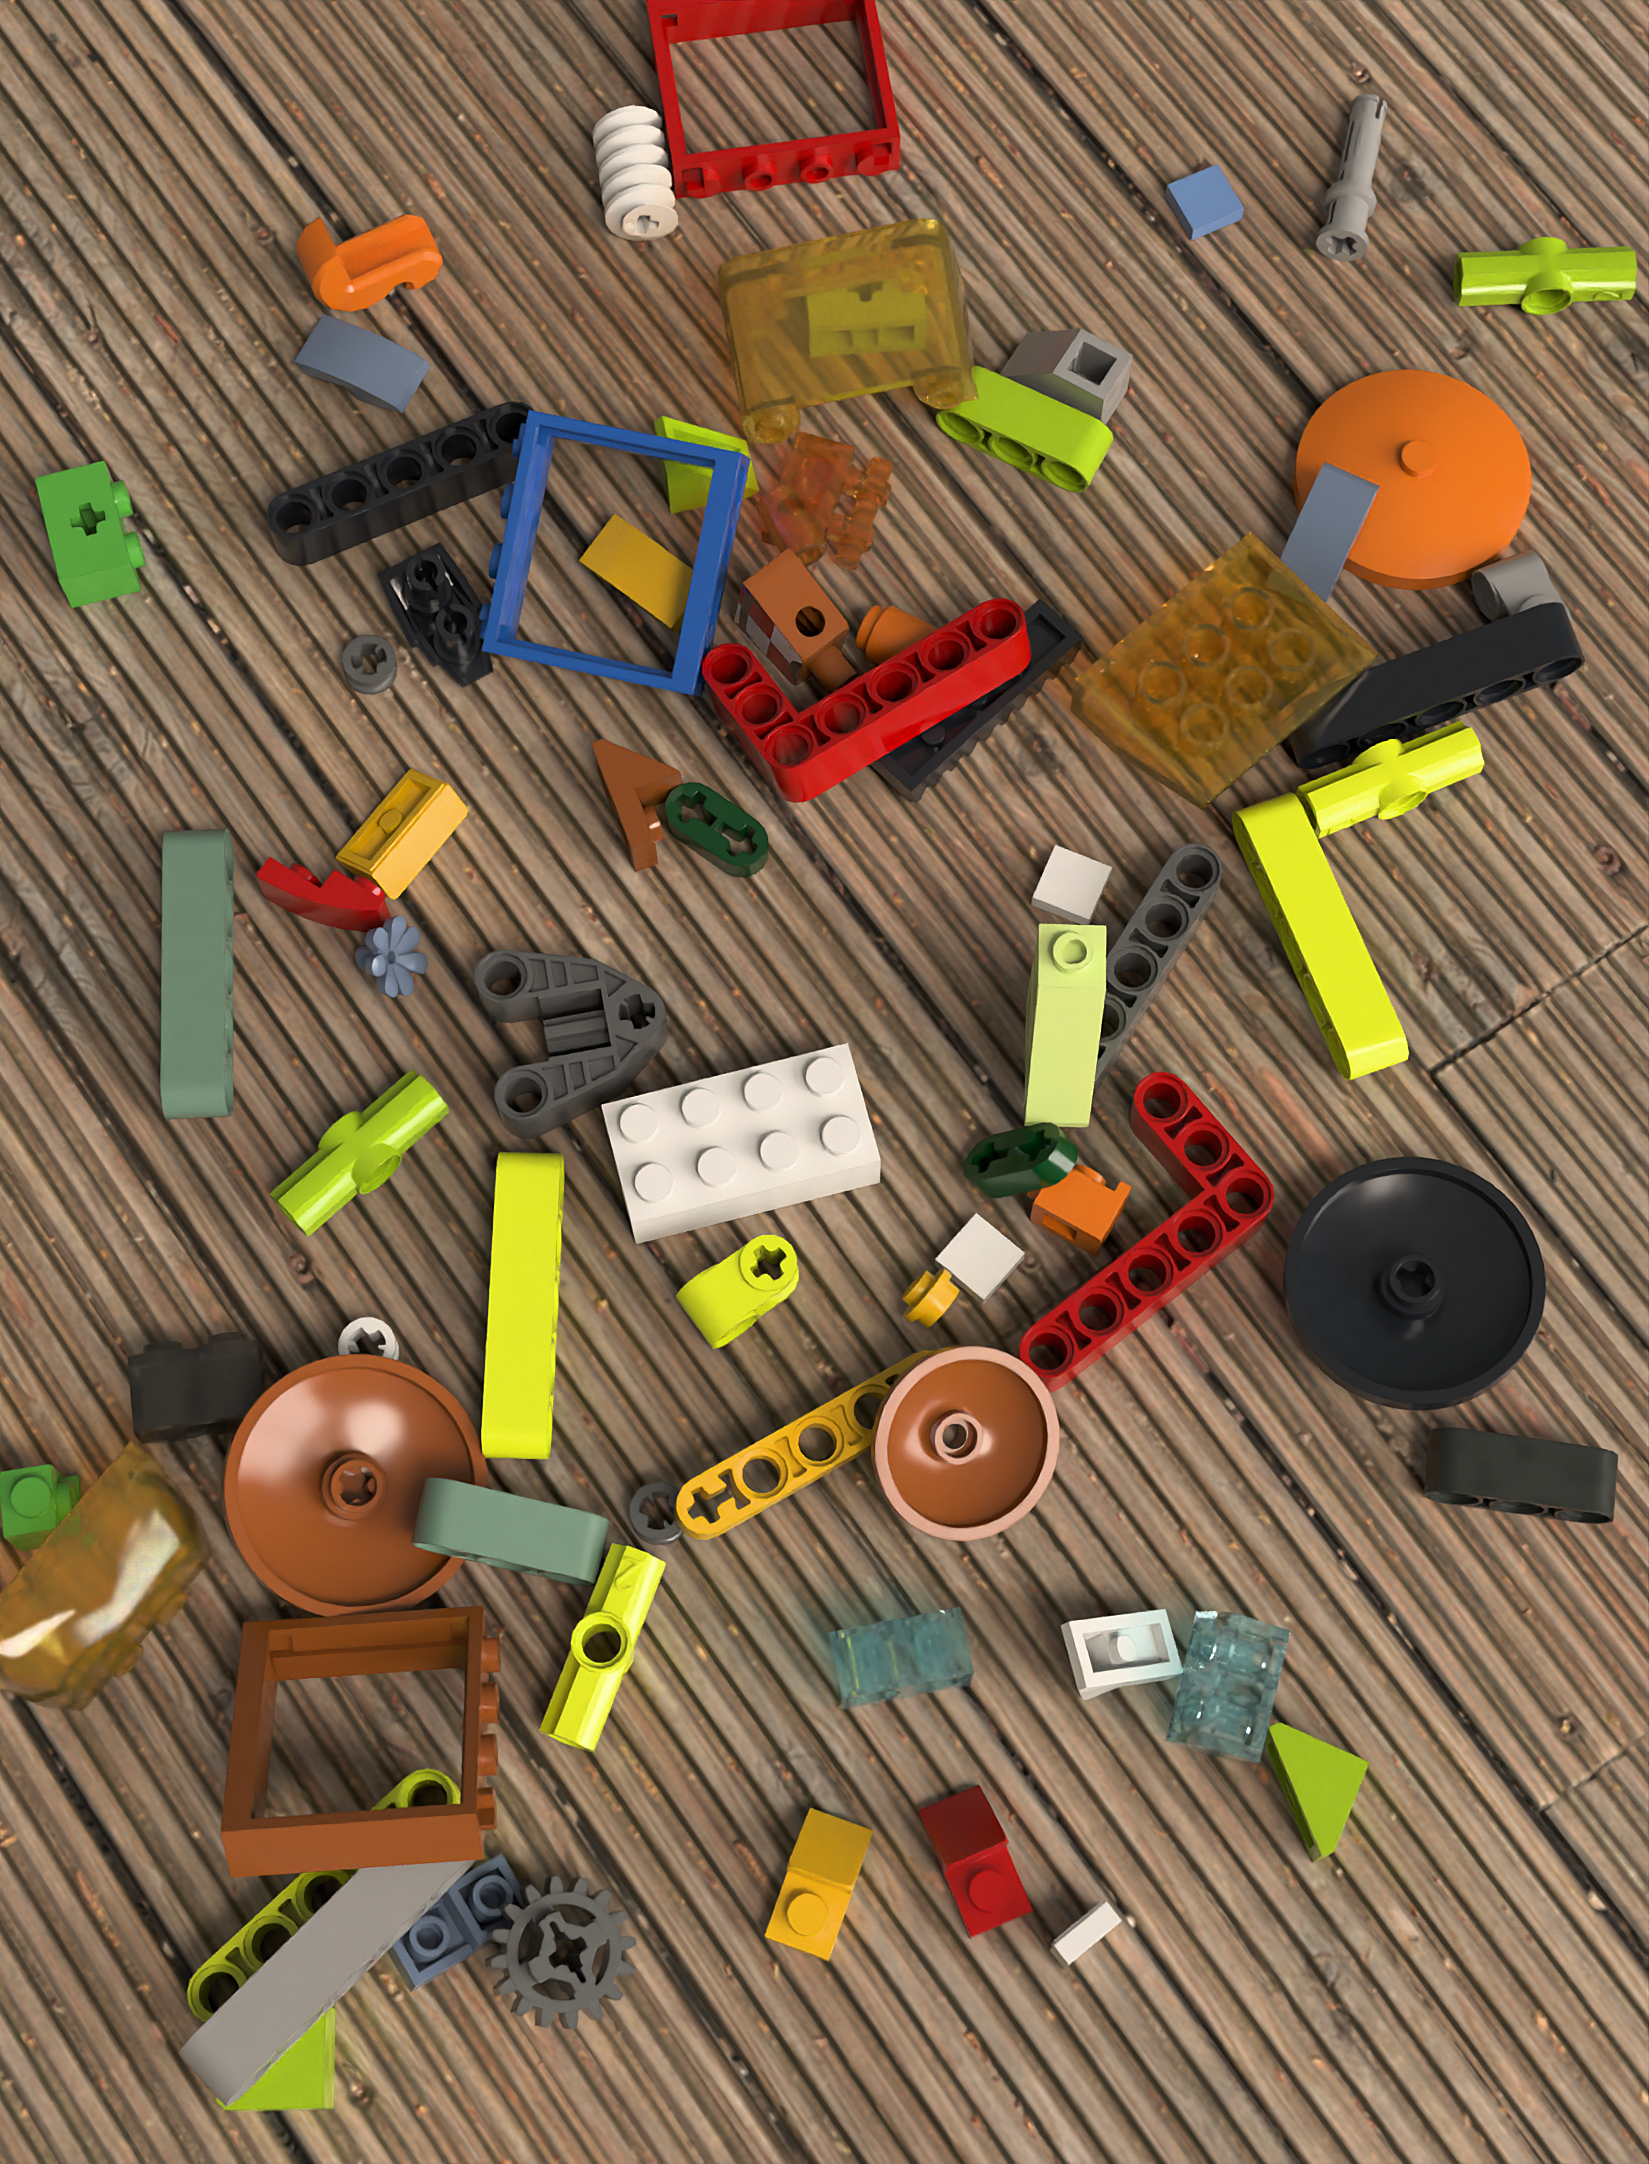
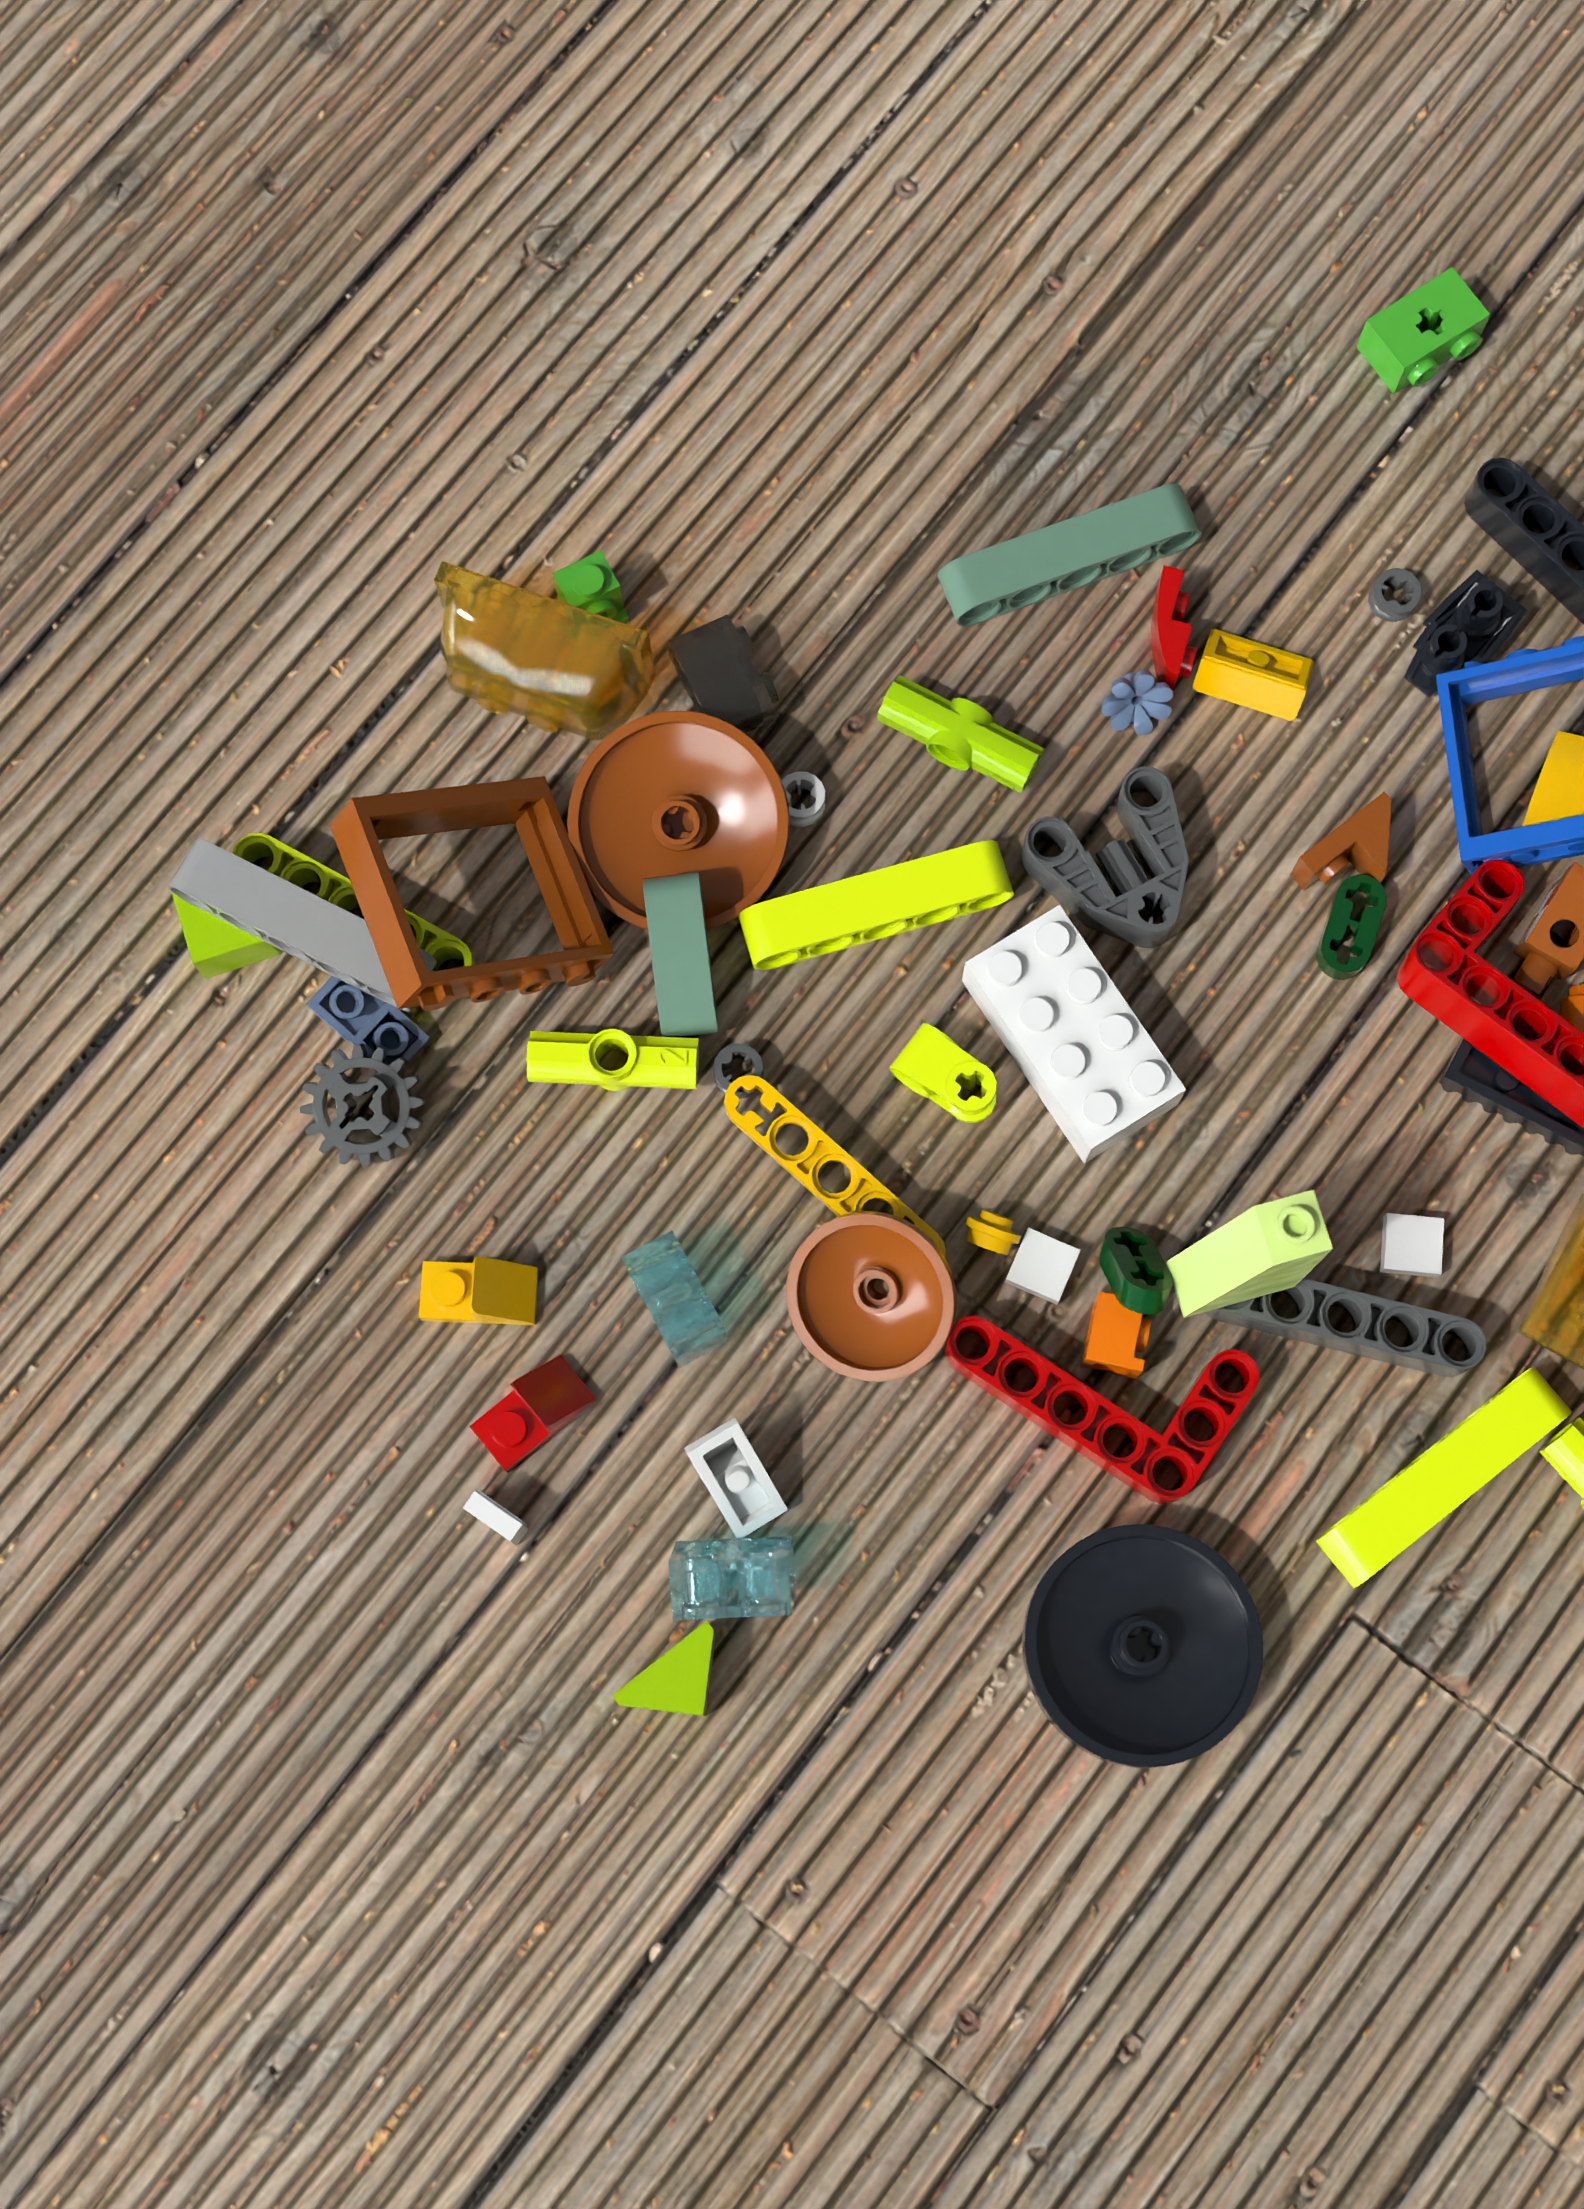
camera: 75 degrees right, 5 degrees up
(1521, 1475) = (1002, 1790): pearl dark grey beam -> none

